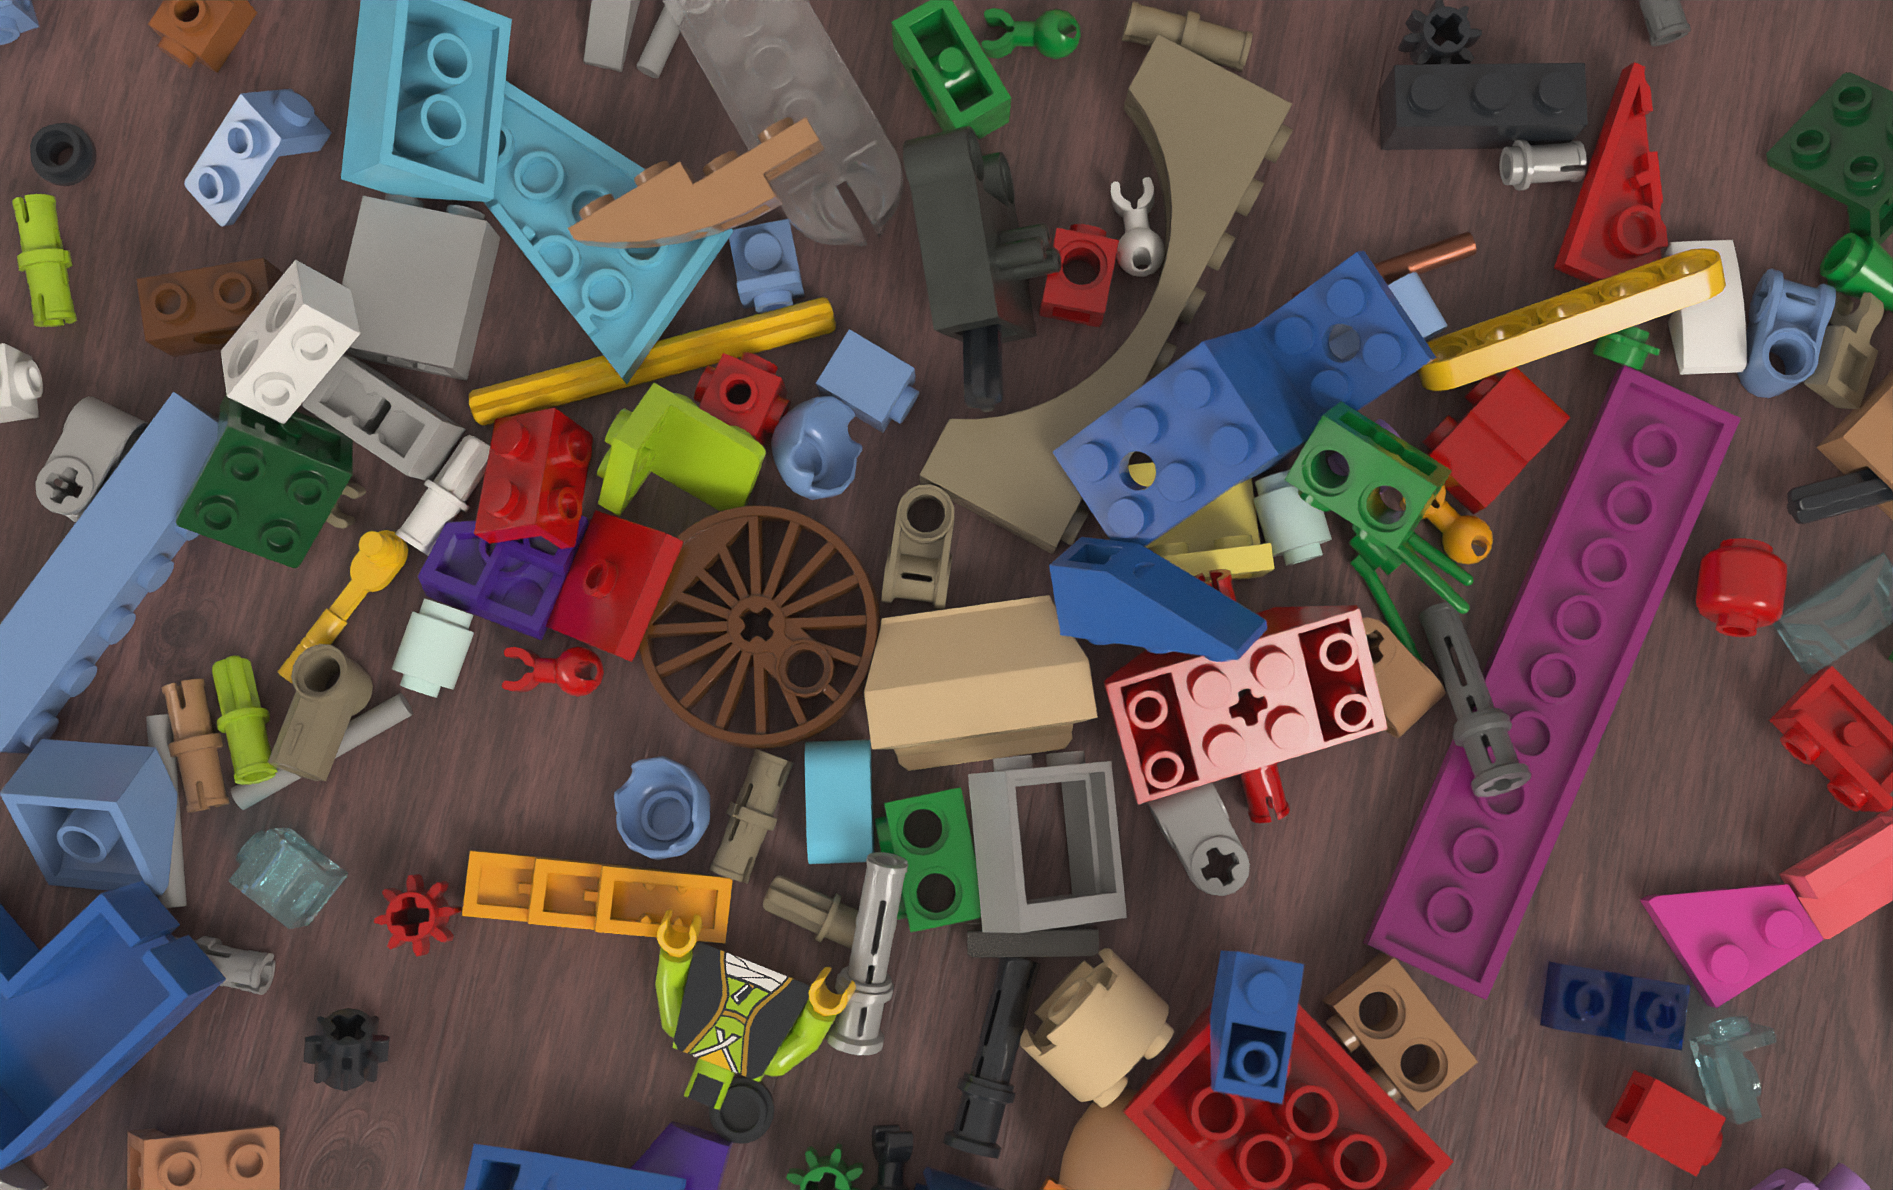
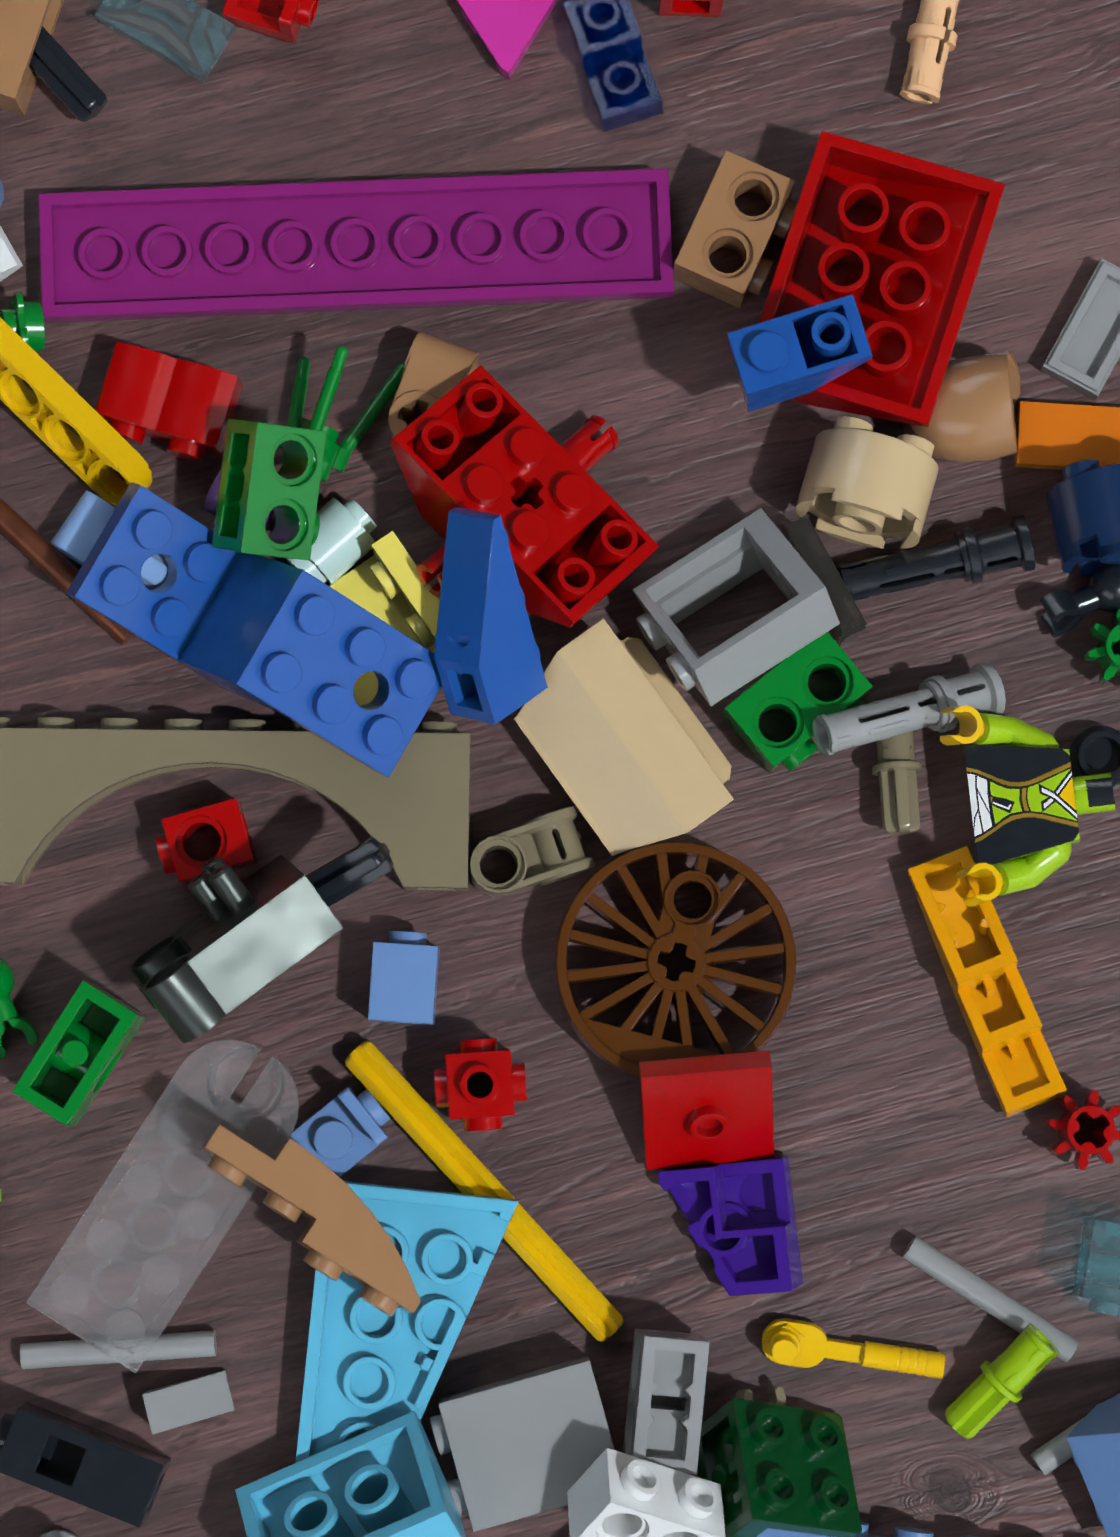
camera: 120 degrees left, 0 degrees up
(195, 745) = (1046, 1415): medium nougat pin -> none
(318, 716) = (967, 1312): dark tan piece -> none
(433, 648) = (847, 1245): light aqua brick -> none
(446, 494) = (703, 1311): white axle -> none
(534, 479) = (649, 1236): red bracket -> none
(569, 670) = (804, 1115): red arm -> none
(662, 808) = (880, 962): medium blue hair -> none
(682, 446) = (552, 1110): lime bracket -> none
(751, 816) = (844, 883): dark tan pin -> none
(815, 448) = (490, 995): medium blue hair -> none
(839, 801) = (791, 811): medium azure beam -> none
(1139, 243) = (146, 805): white arm -> none
(1192, 826) = (649, 488): light grey piece -> none
(1458, 530) = (266, 388): light orange arm -> none
(1473, 729) = (442, 291): dark grey pin -> none
(1741, 587) = (191, 122): red head -> none

